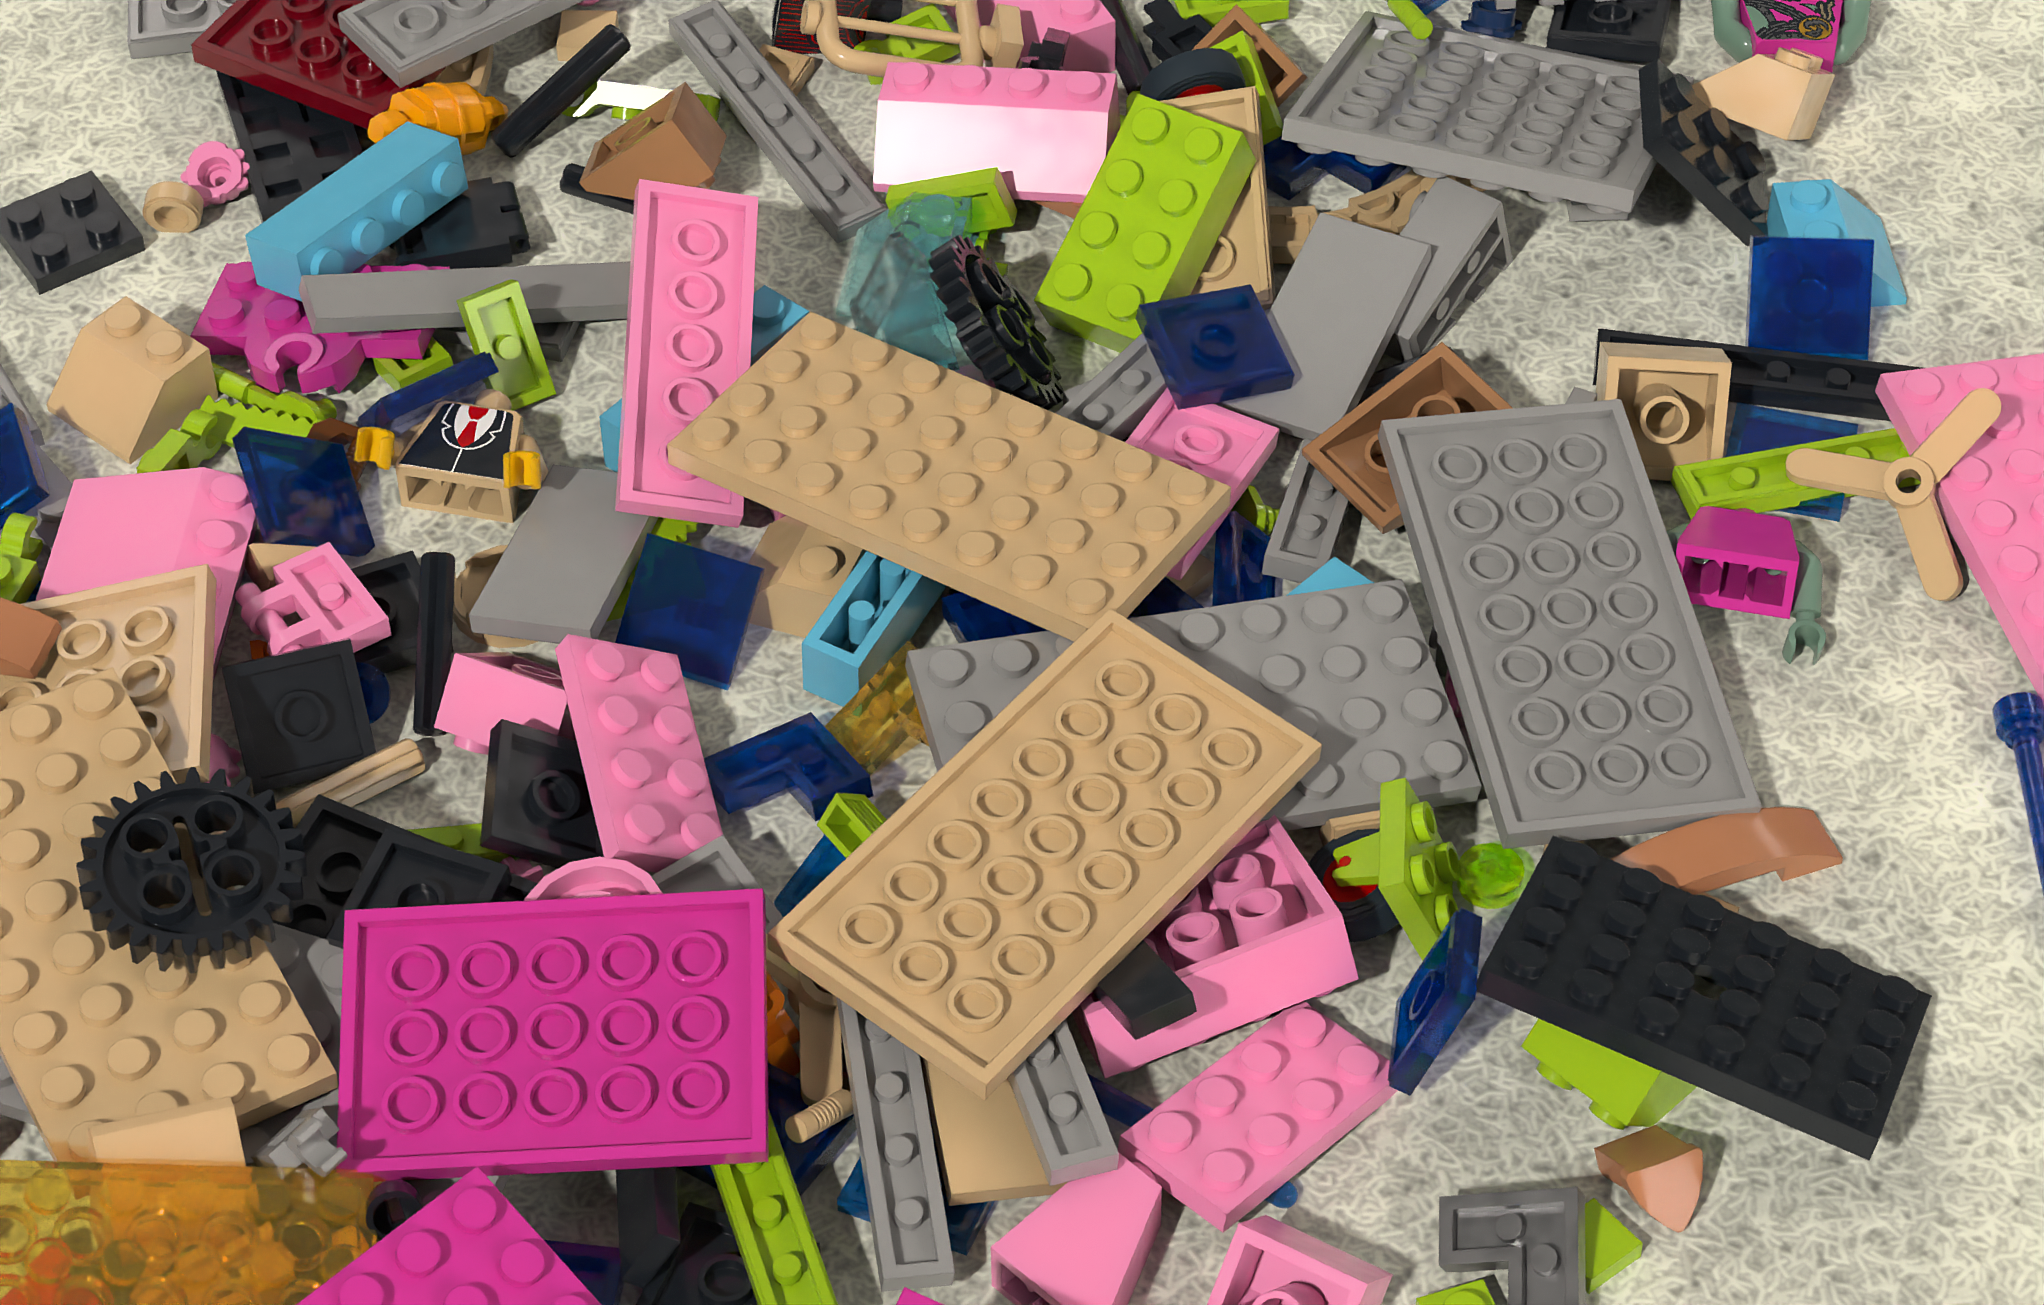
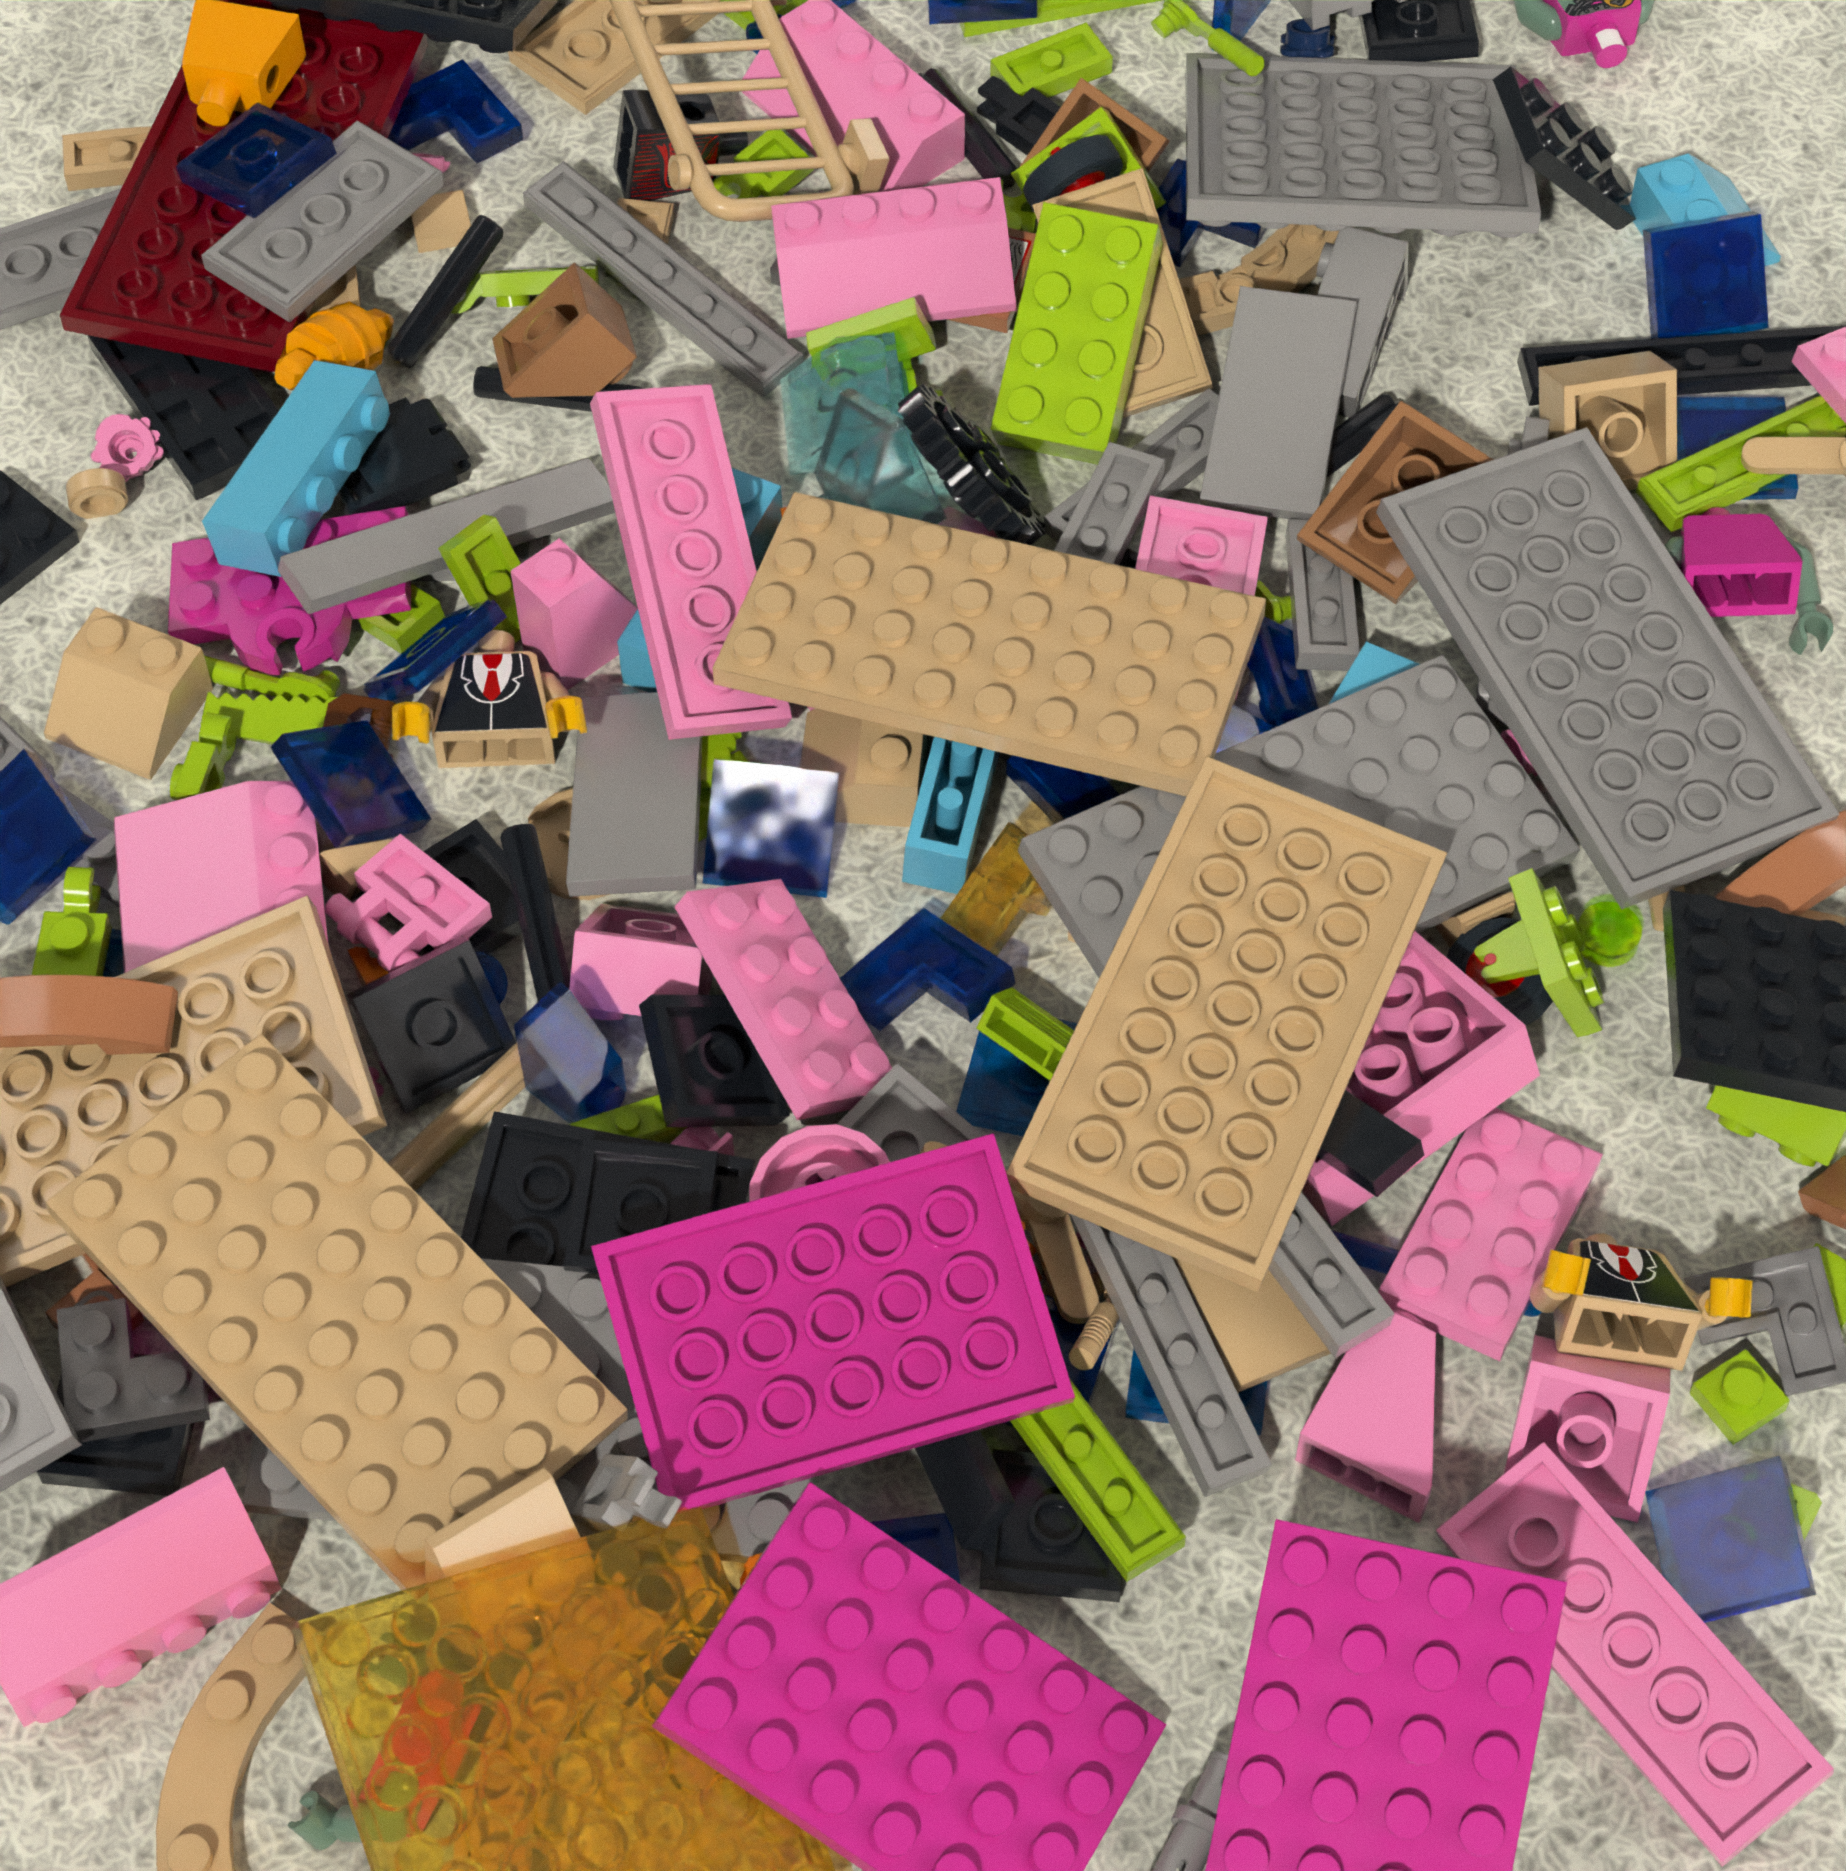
camera: 15 degrees left, 10 degrees up
(127, 886) = (371, 1267): black gear -> none
(377, 1201) = (741, 1552): black hinge -> none
(411, 765) = (568, 1058): none -> clear blue slope
(561, 382) = (568, 613): none -> bright pink slope
(1049, 53) = (915, 165): black plate -> none
(1214, 346) = (1184, 446): clear blue tile -> none
(1361, 1197) = (1630, 1303): none -> torso
(1435, 1001) = (1624, 1085): clear blue tile -> none
(1771, 92) = (1600, 72): tan slope -> none

